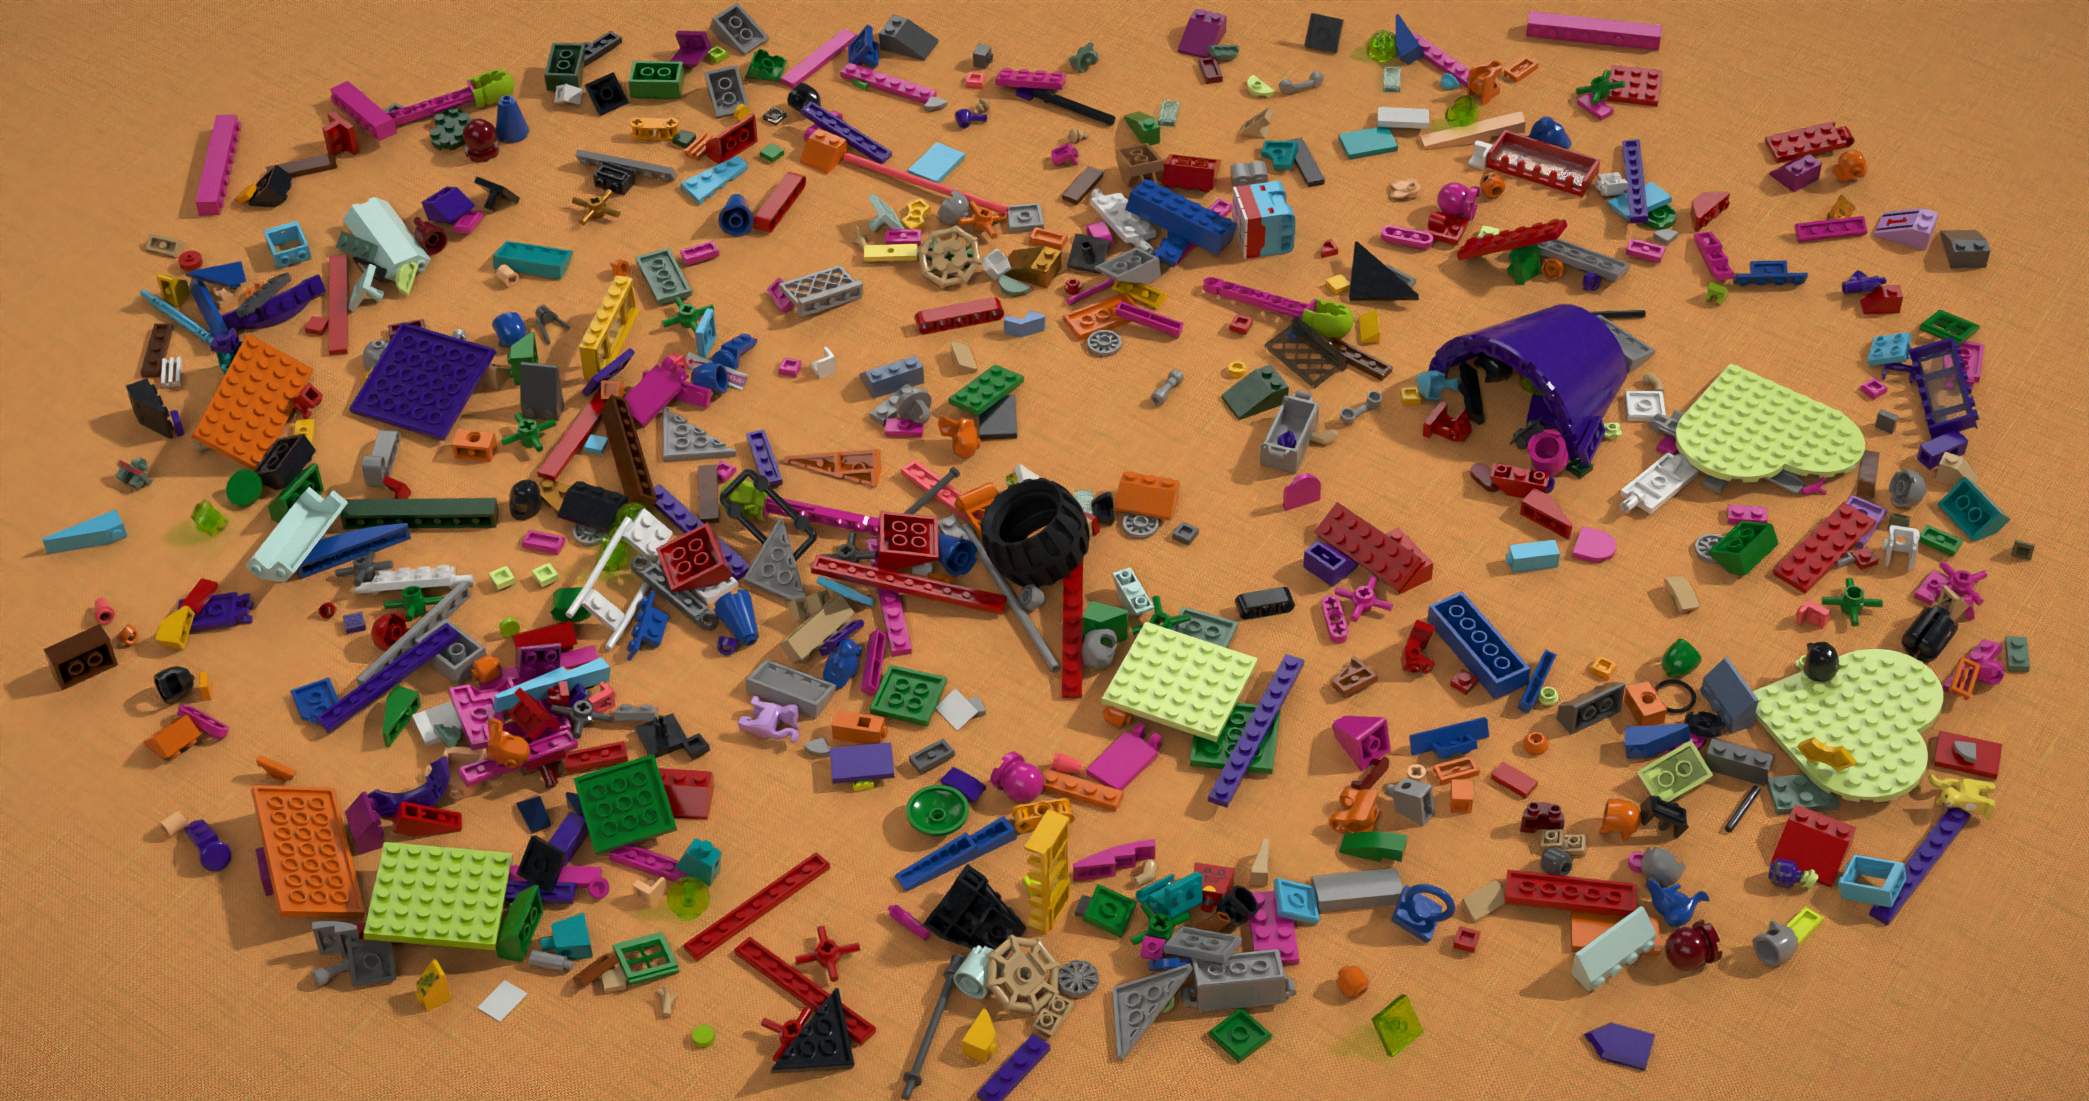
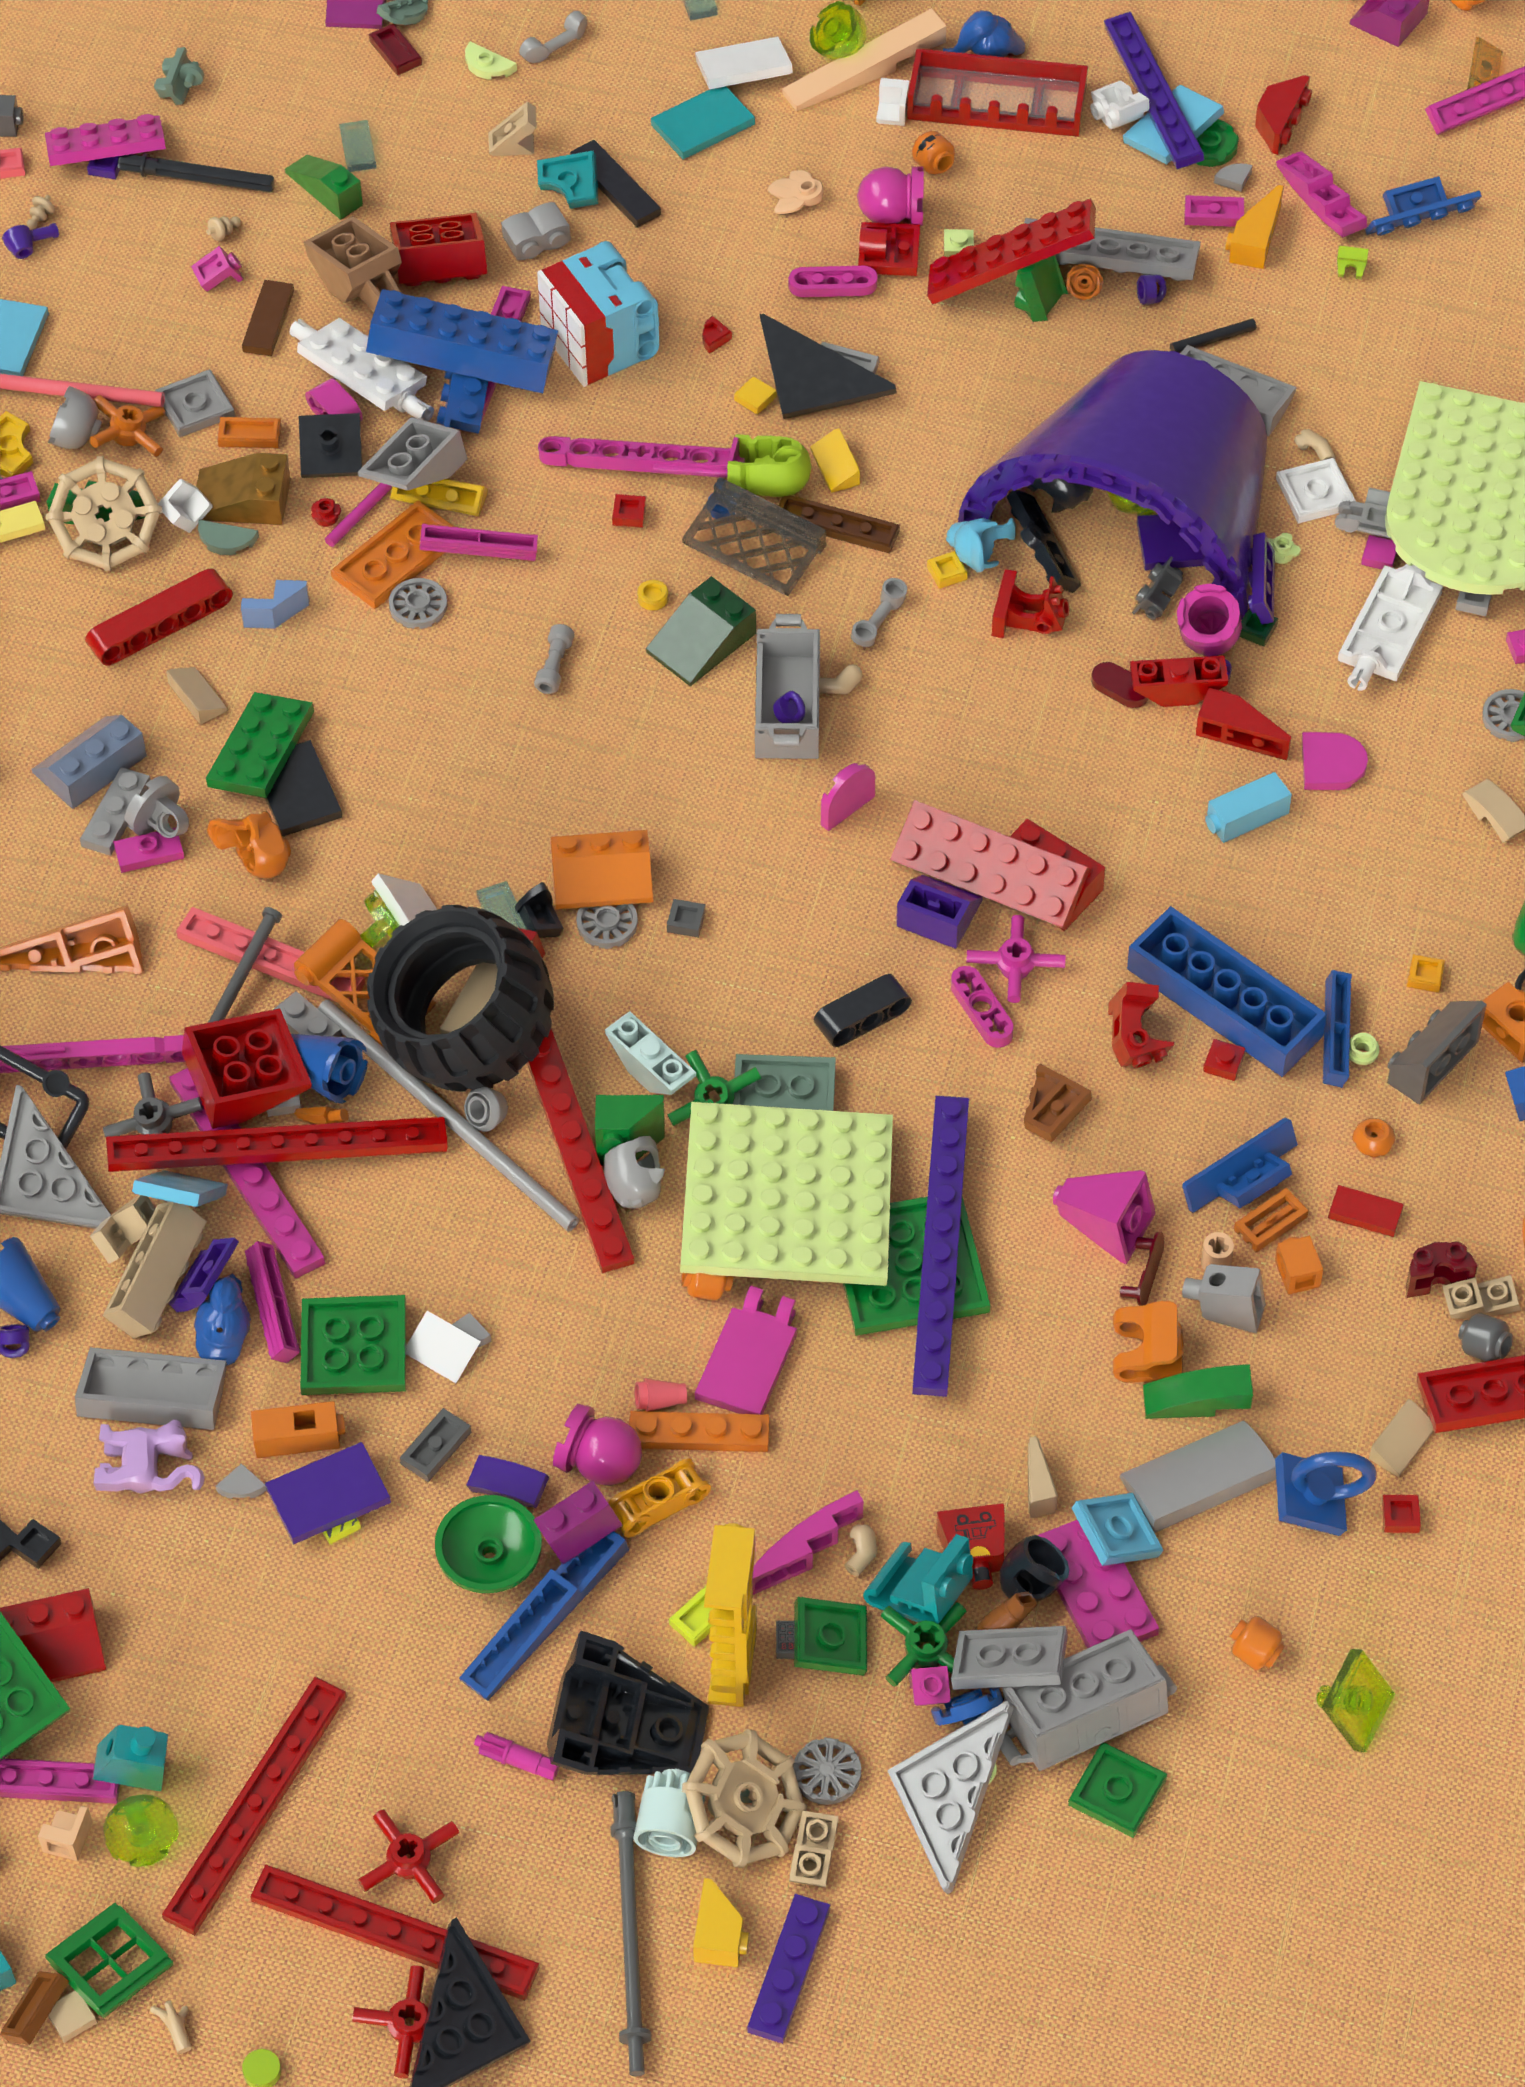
camera: 20 degrees left, 10 degrees up
(990, 811) = (577, 1522): none -> magenta brick
(1665, 265) = (1255, 231): none -> light orange slope

